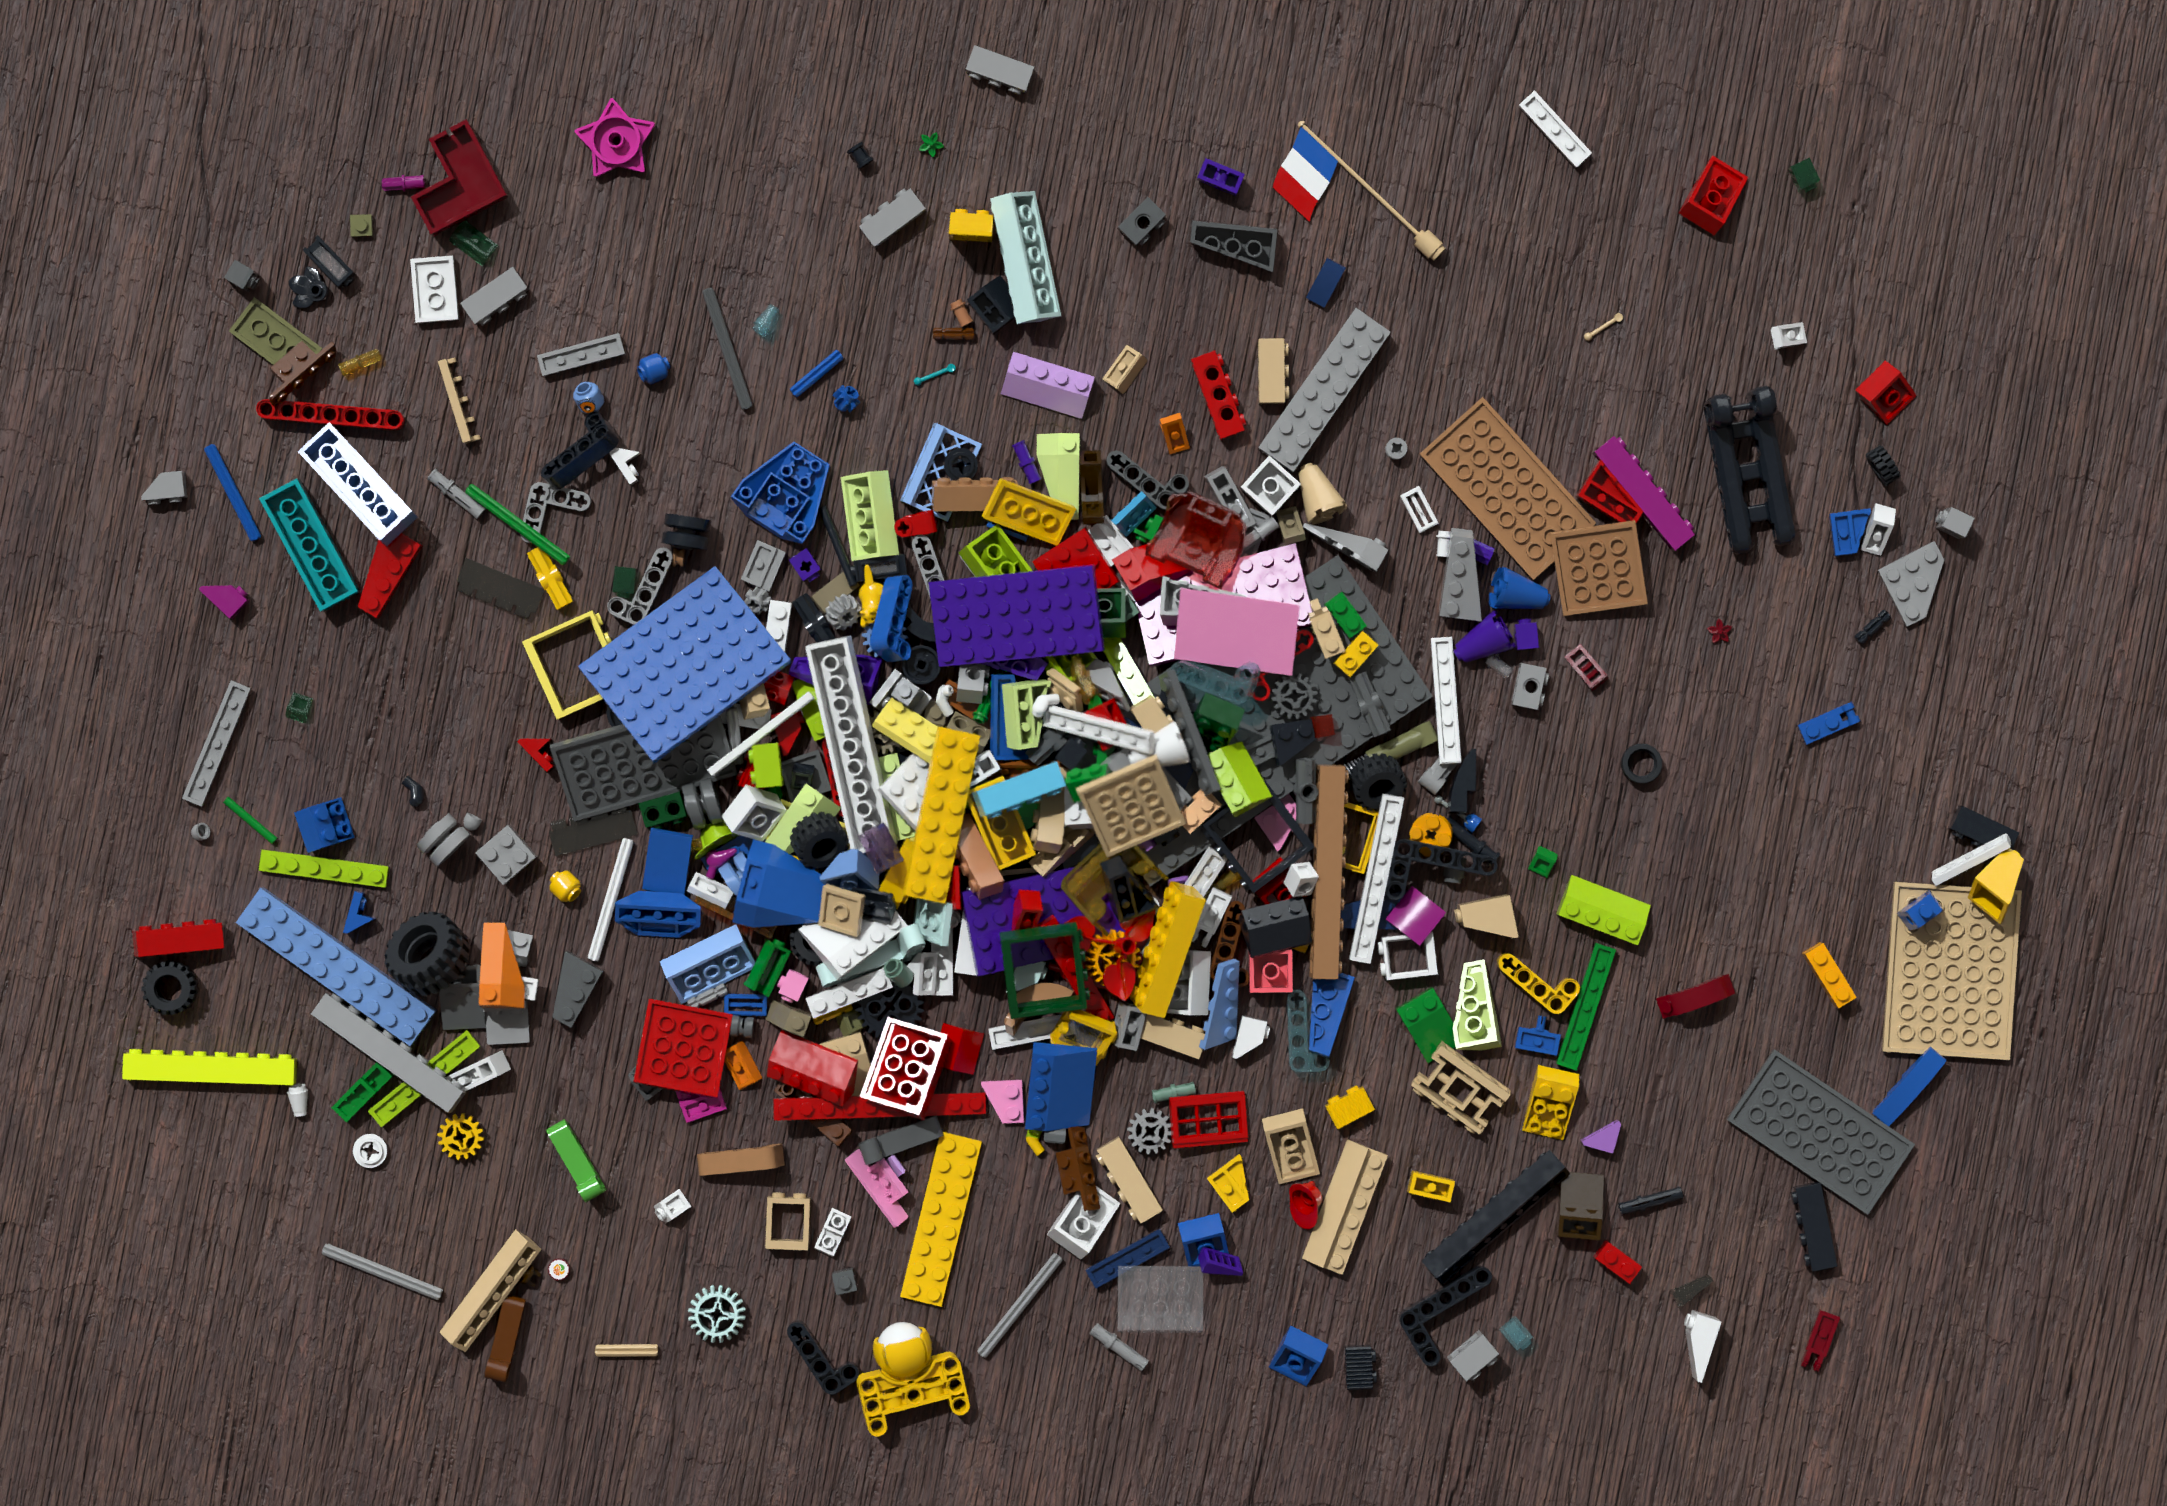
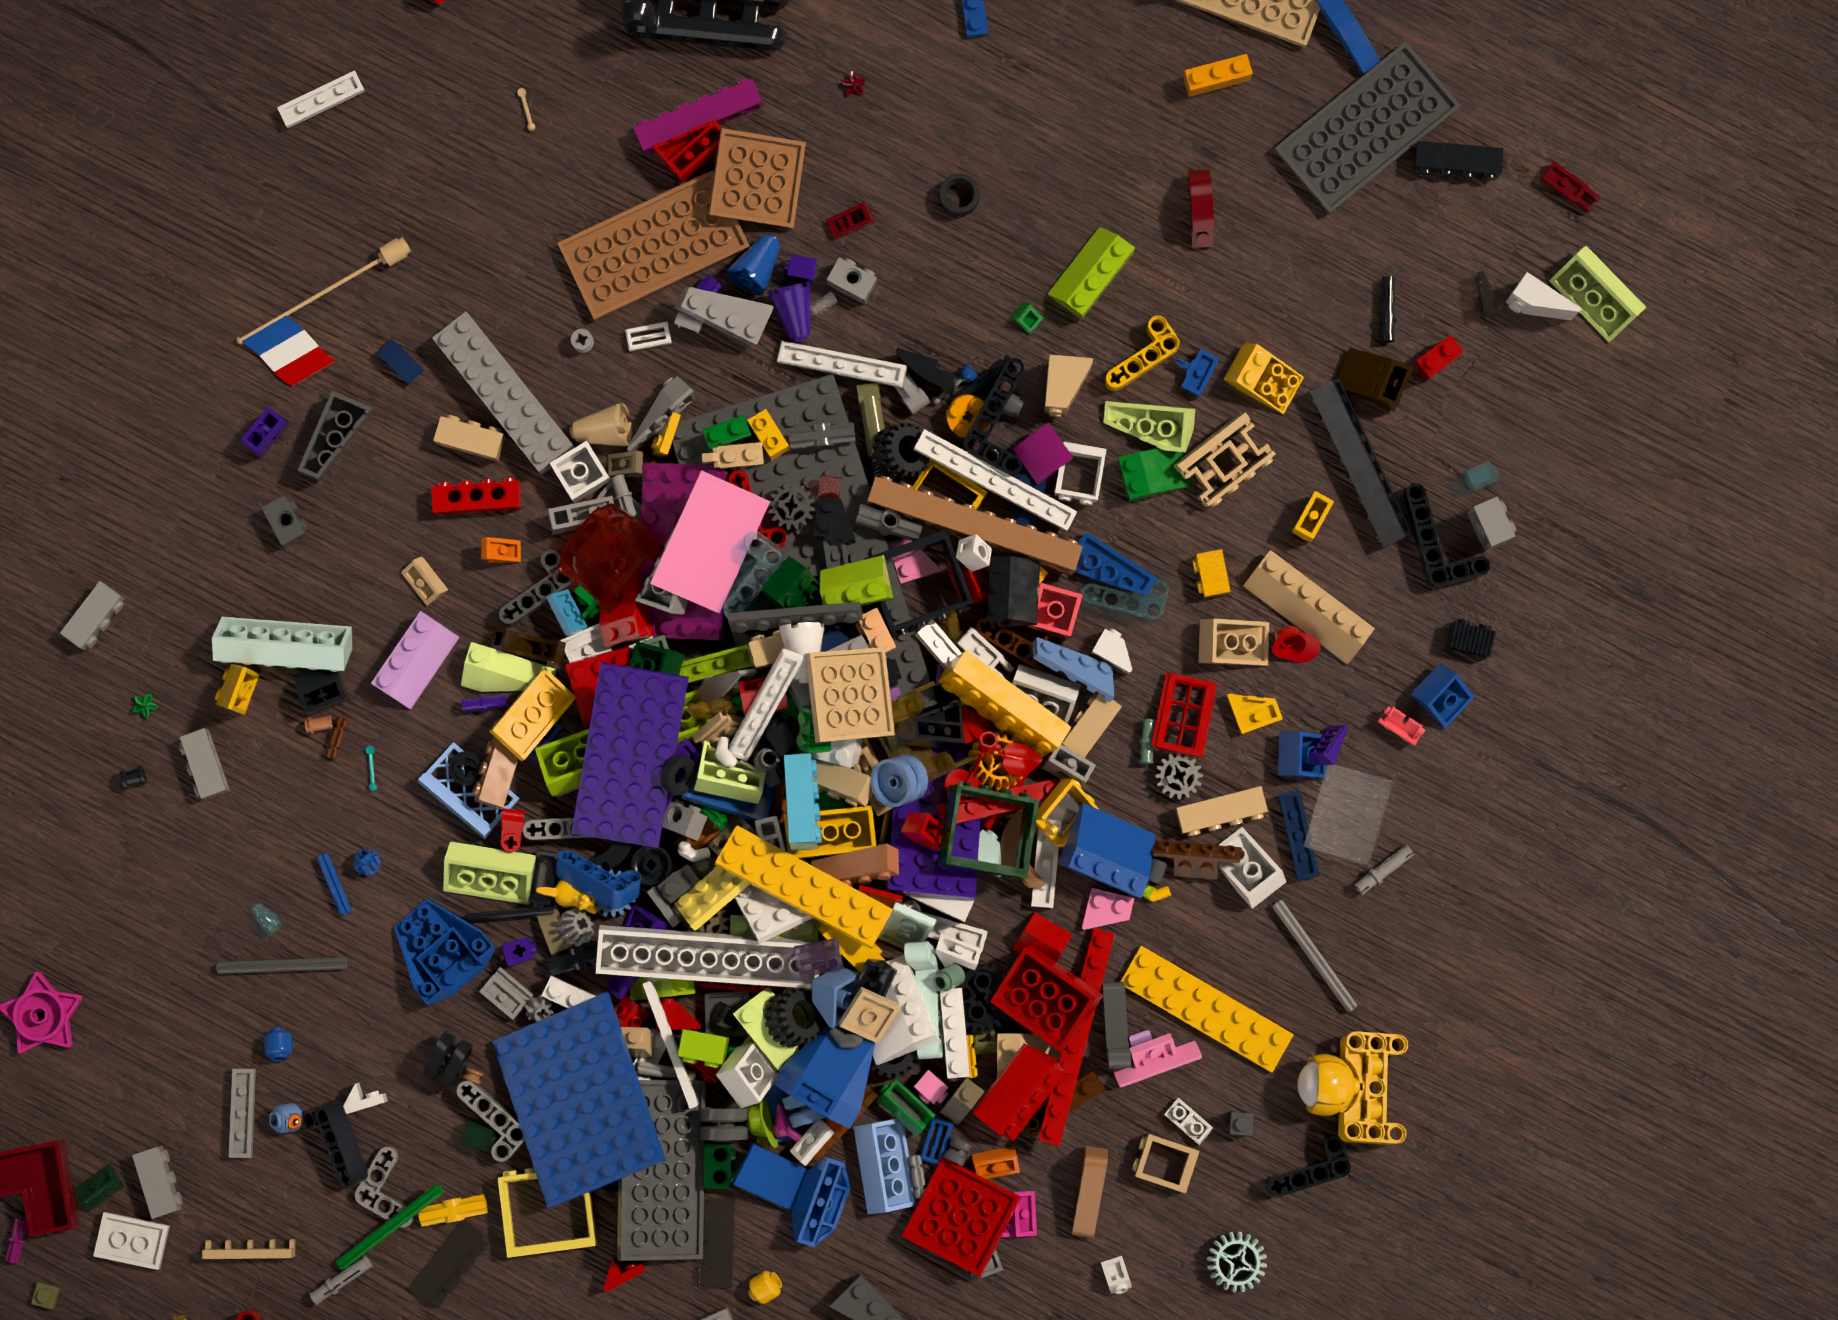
camera: 80 degrees left, 5 degrees down
(610, 899) = (791, 1245): white axle -> none
(811, 895) = (845, 1040): none -> dark grey arm
(1011, 658) = (669, 772): none -> black tyre
(1052, 749) = (771, 756): none -> dark grey brick
(1066, 874) = (899, 780): none -> medium blue wheel
(1260, 1316) = (1393, 720): none -> coral hinge
(1327, 556) = (663, 442): none -> yellow wing
(1585, 1006) = (1180, 316): green plate -> none
(1604, 1138) = (1313, 335): medium lavender slope -> none
(1724, 1394) = (1598, 293): none -> yellowish green slope

